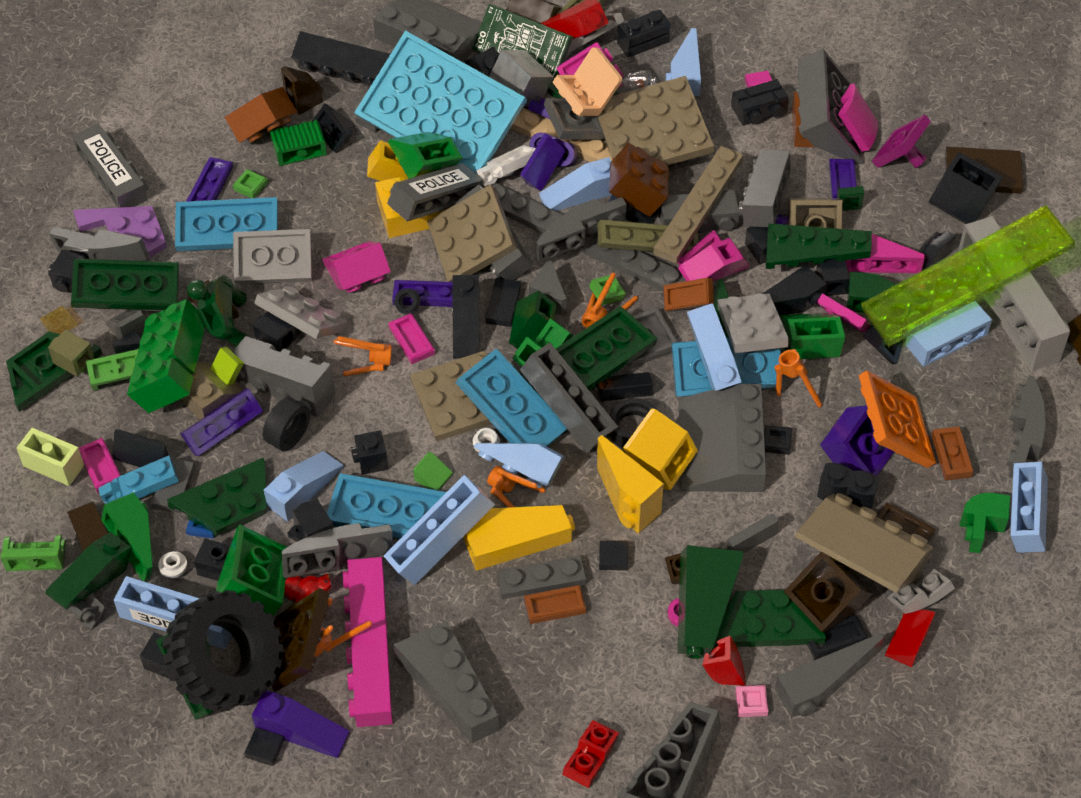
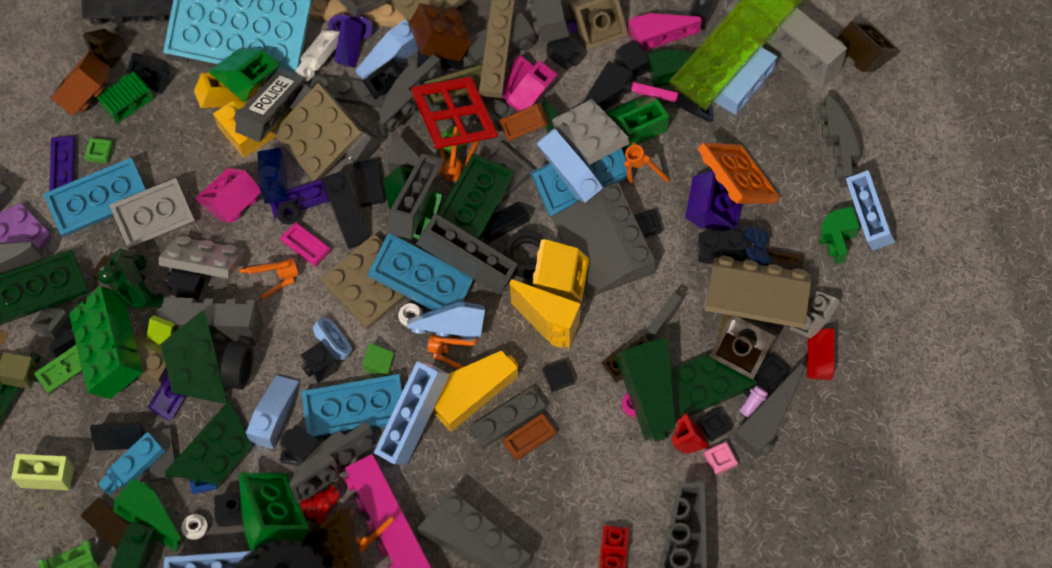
camera: 20 degrees left, 10 degrees up
(99, 463) = (87, 460): dark pink tile -> none
(244, 403) = (193, 362): none -> dark green wing
(395, 435) = (332, 338): none -> light blue plate
(407, 260) = (272, 175): none -> clear blue brick
(533, 326) = (414, 197): none -> dark grey slope
(556, 205) = (382, 78): none -> black slope
(644, 263) = (430, 117): none -> red window
(760, 665) = (714, 425): none -> black tile
(804, 243) = (594, 45): dark green wing -> none
(815, 651) = (753, 401): none -> lavender pin
(885, 505) = (758, 250): none -> dark blue piece
(952, 453) = (790, 184): dark orange plate -> none

